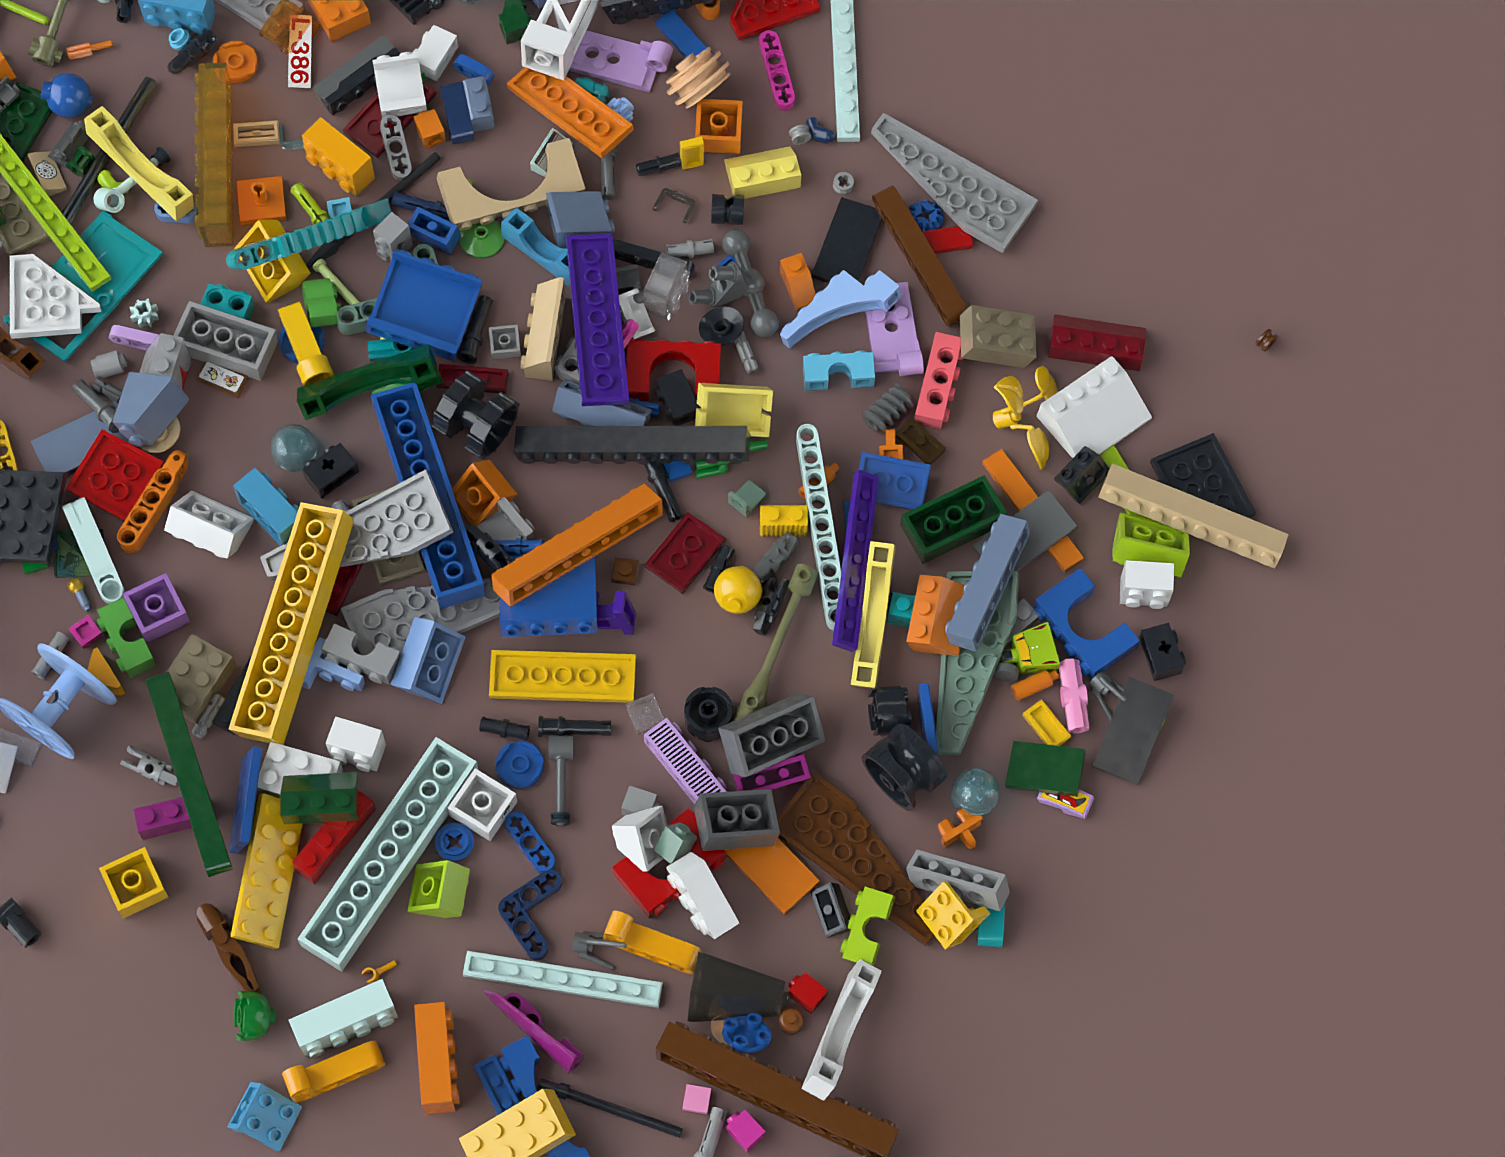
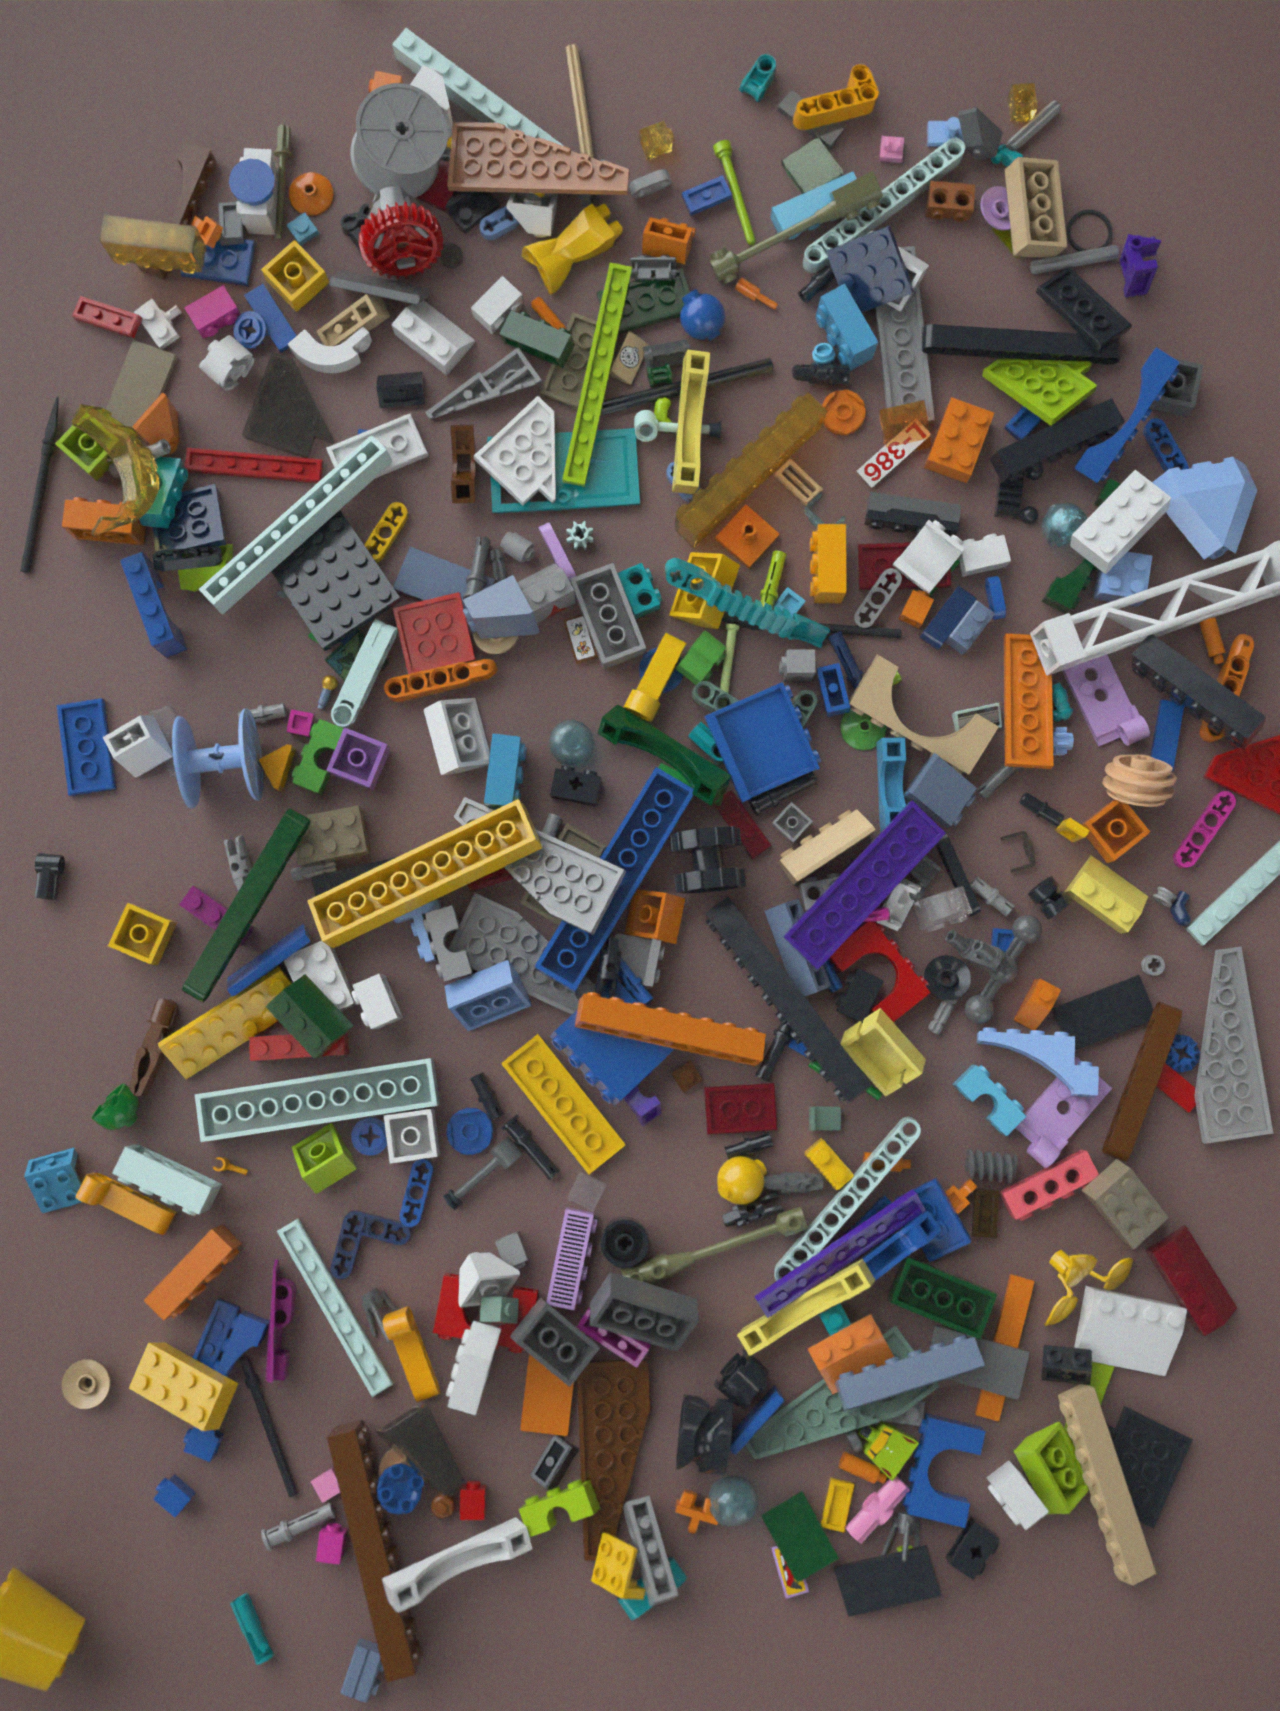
camera: 50 degrees right, 15 degrees up
(888, 509) = (901, 1244): none -> blue arch

